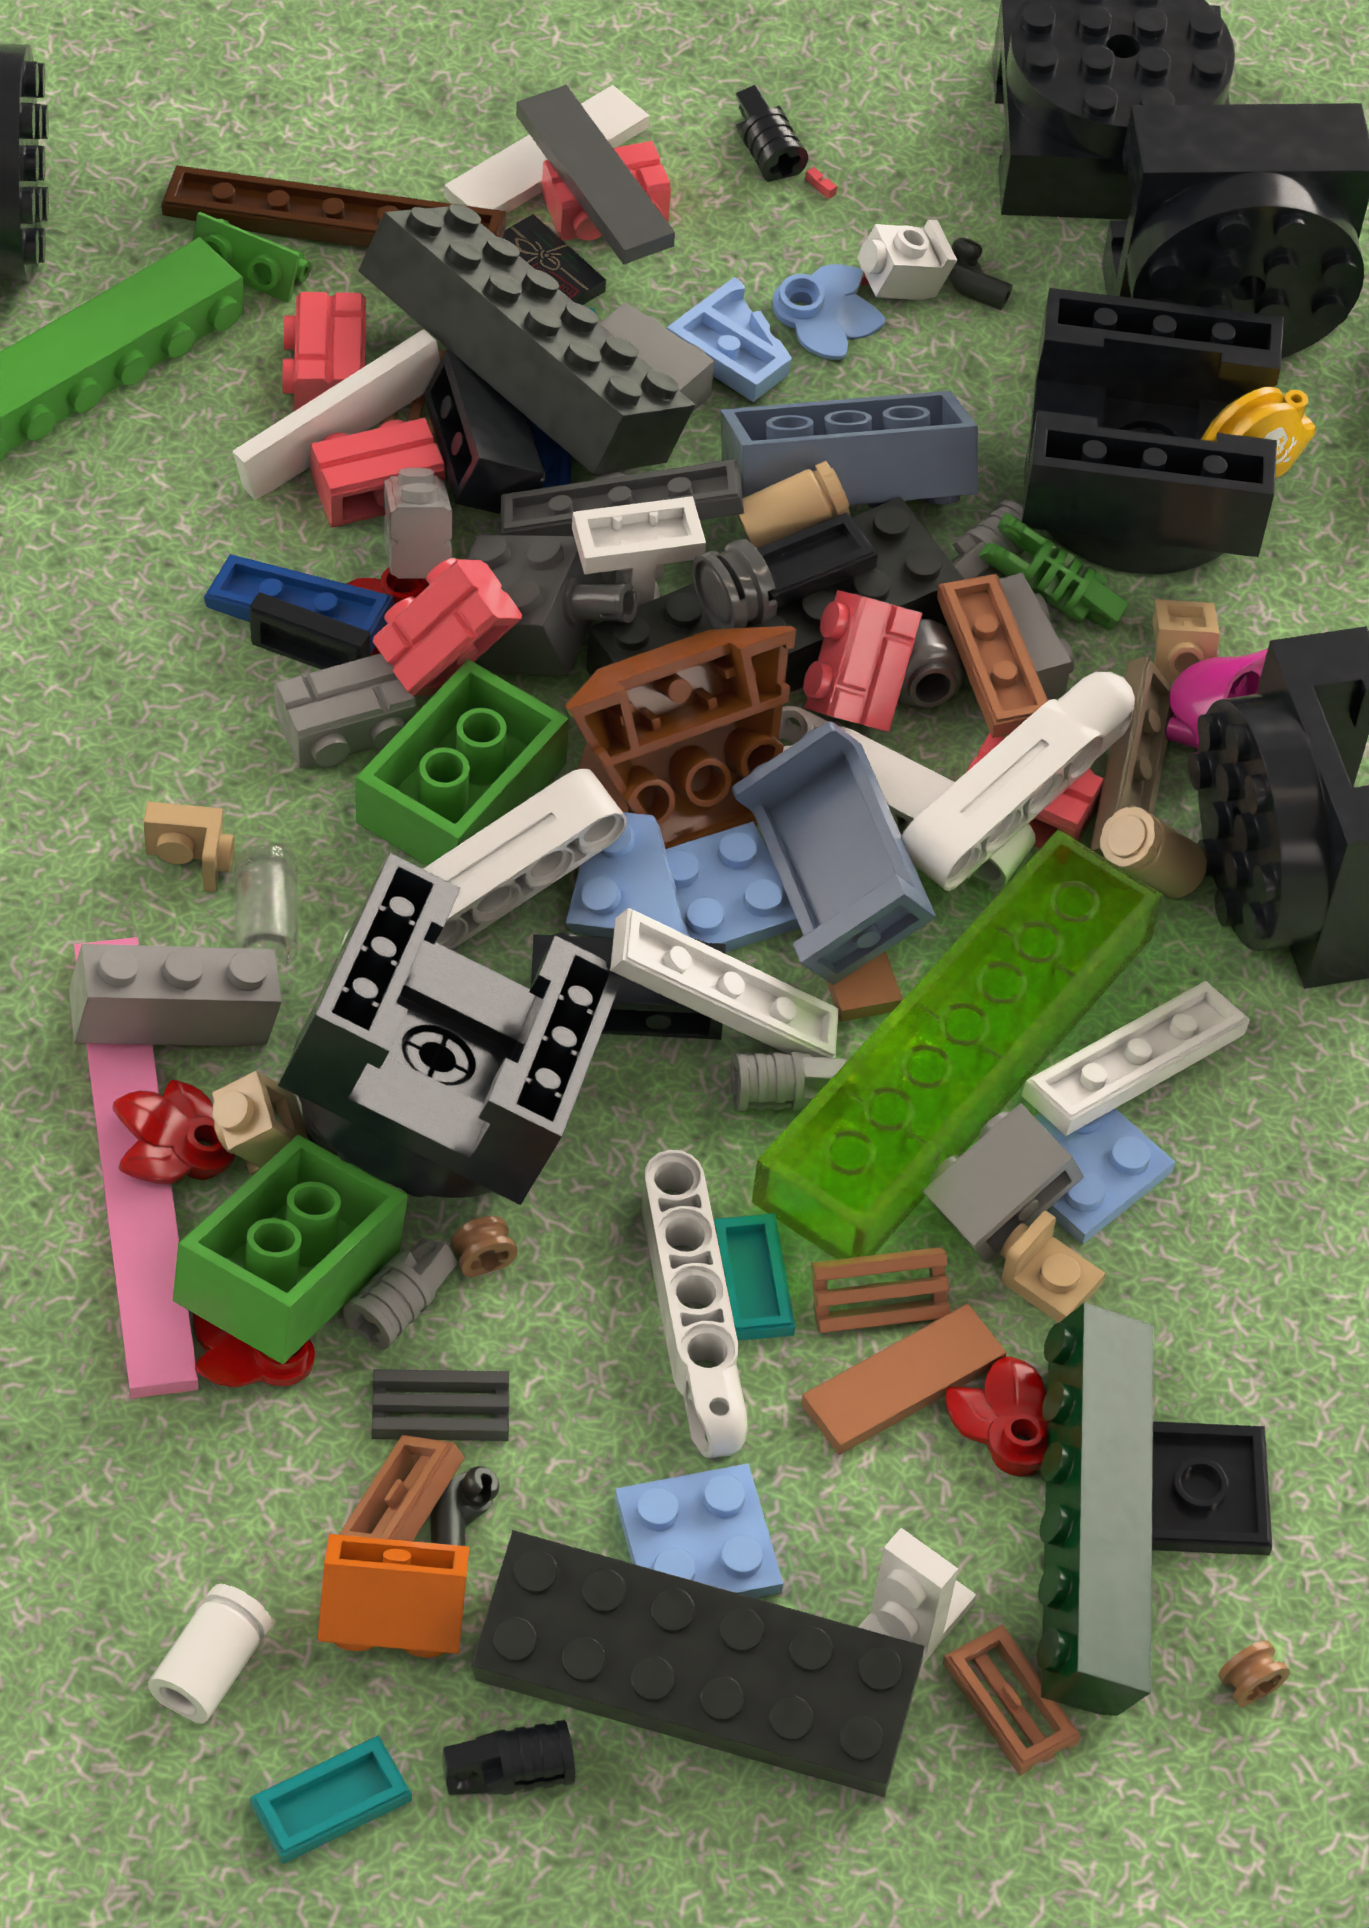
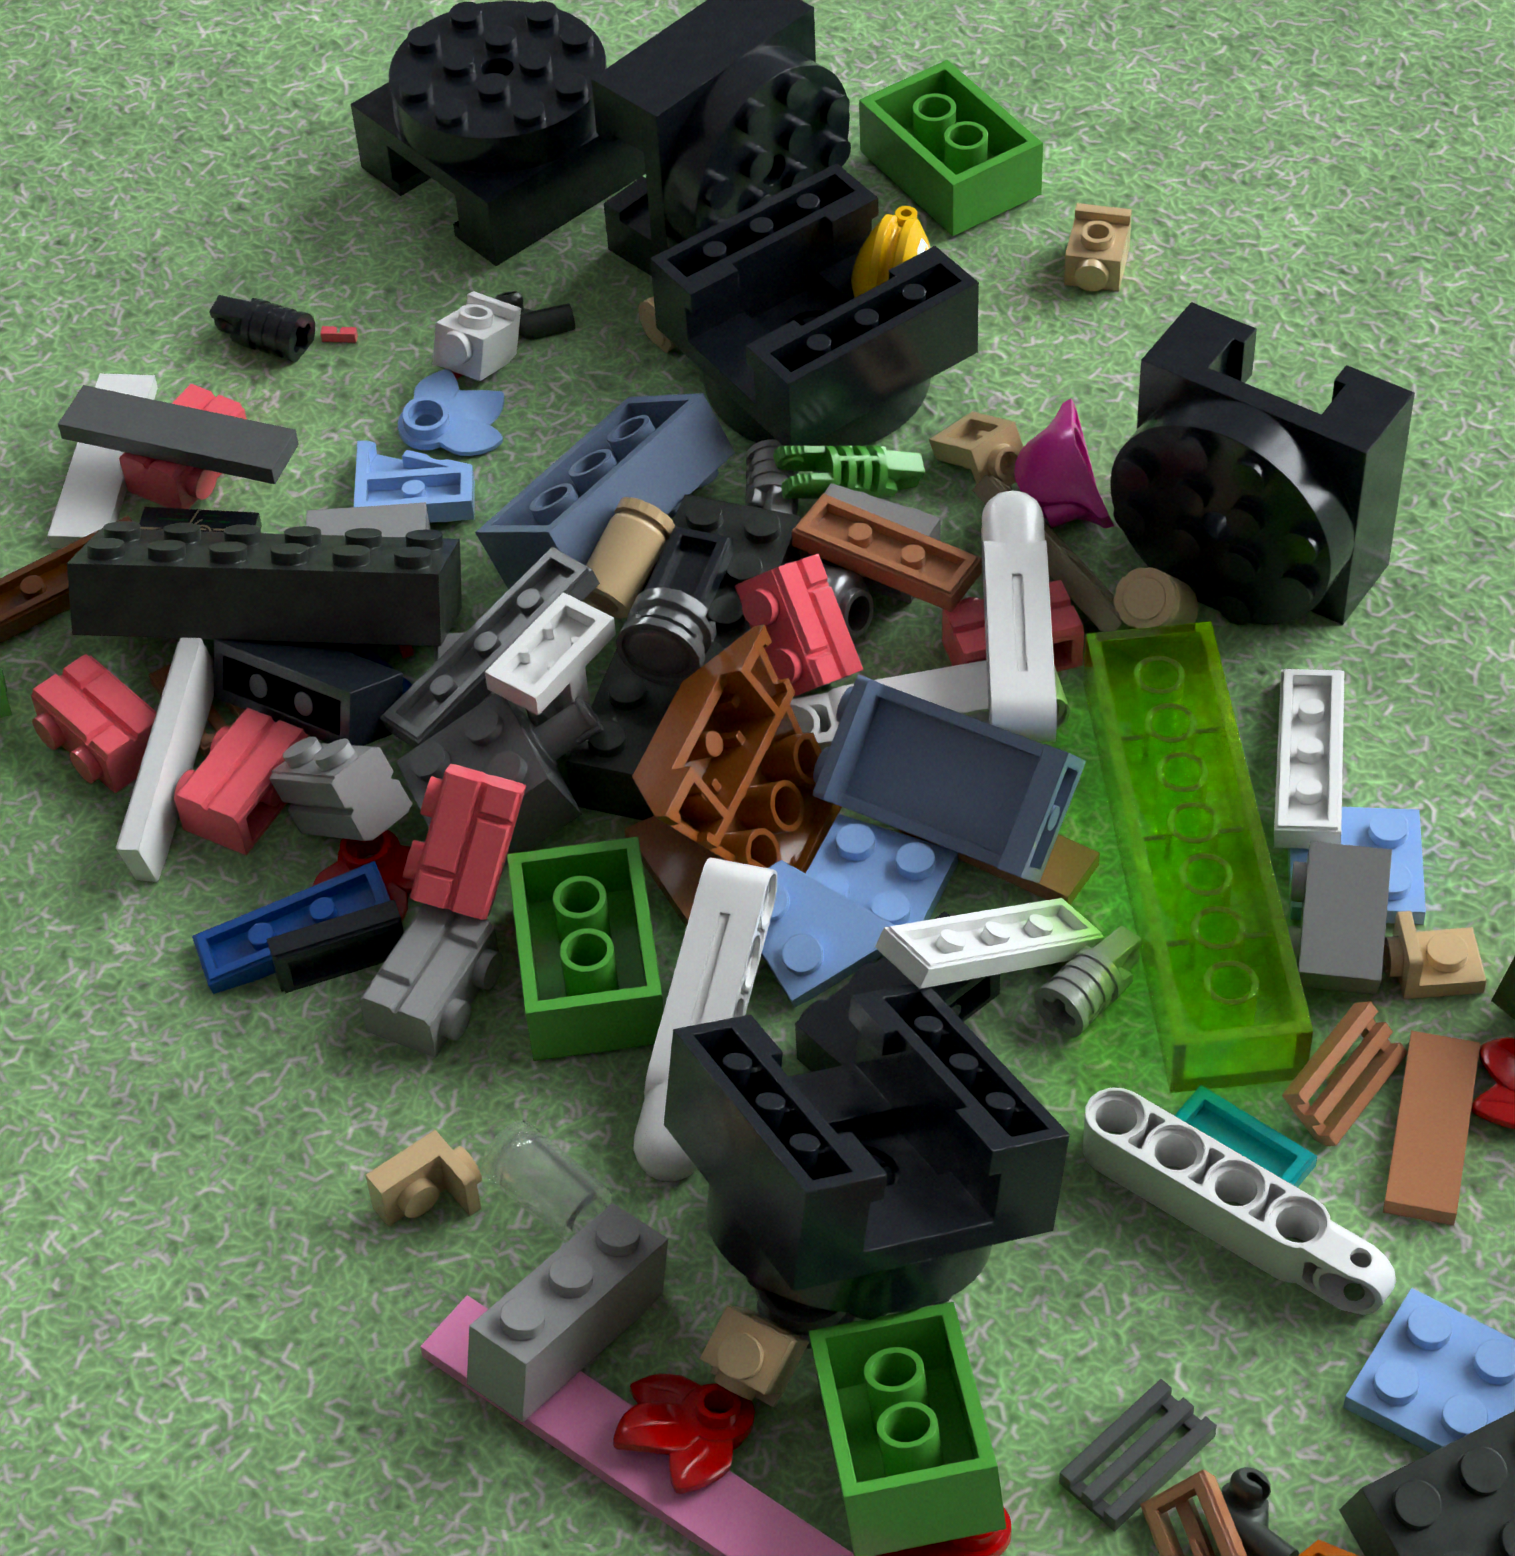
camera: 35 degrees left, 5 degrees down
(399, 1292) = (1009, 1391): light grey hinge -> none
(483, 1246) = (1027, 1298): medium nougat bush -> none

